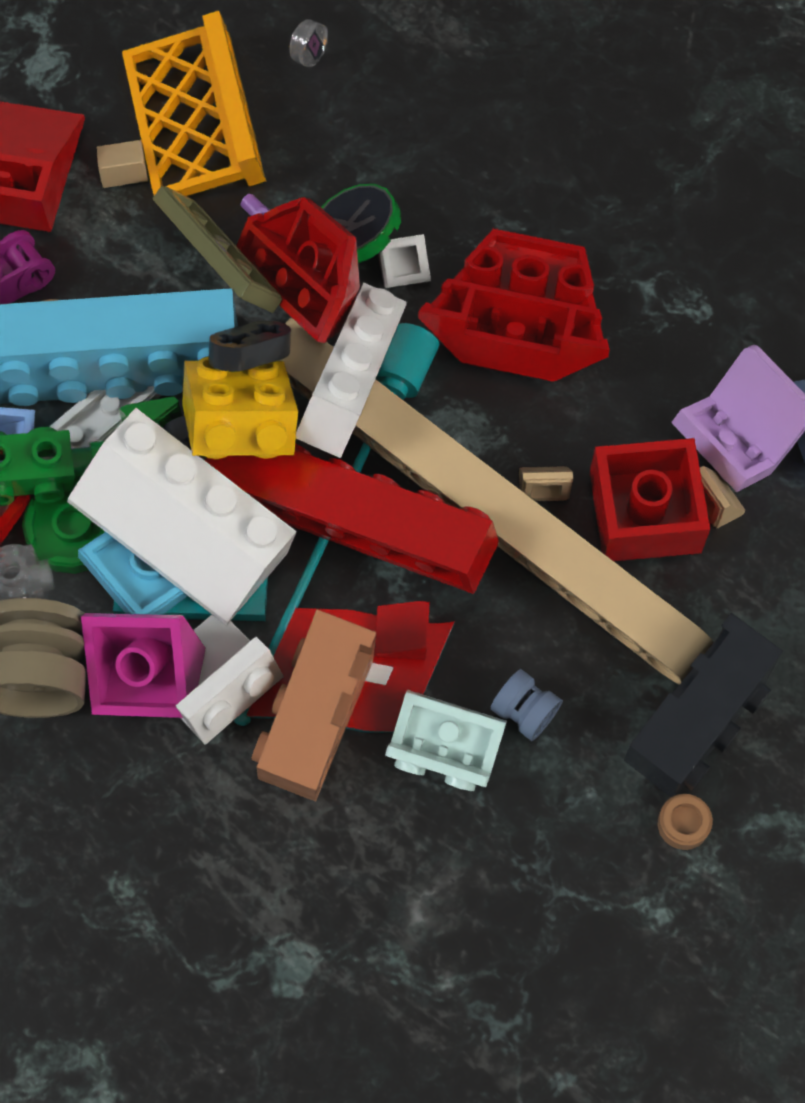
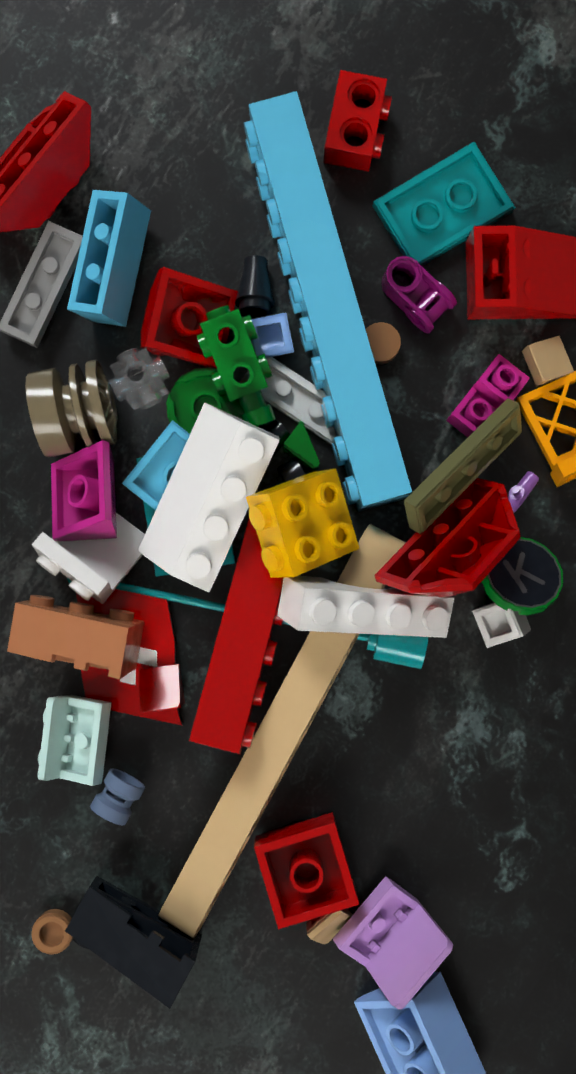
camera: 80 degrees right, 20 degrees up
(146, 227) = (493, 387): none -> dark pink slope
(249, 346) = (358, 515): black beam -> none
(520, 308) = (471, 734): red wedge -> none
(546, 483) = (317, 777): tan slope -> none

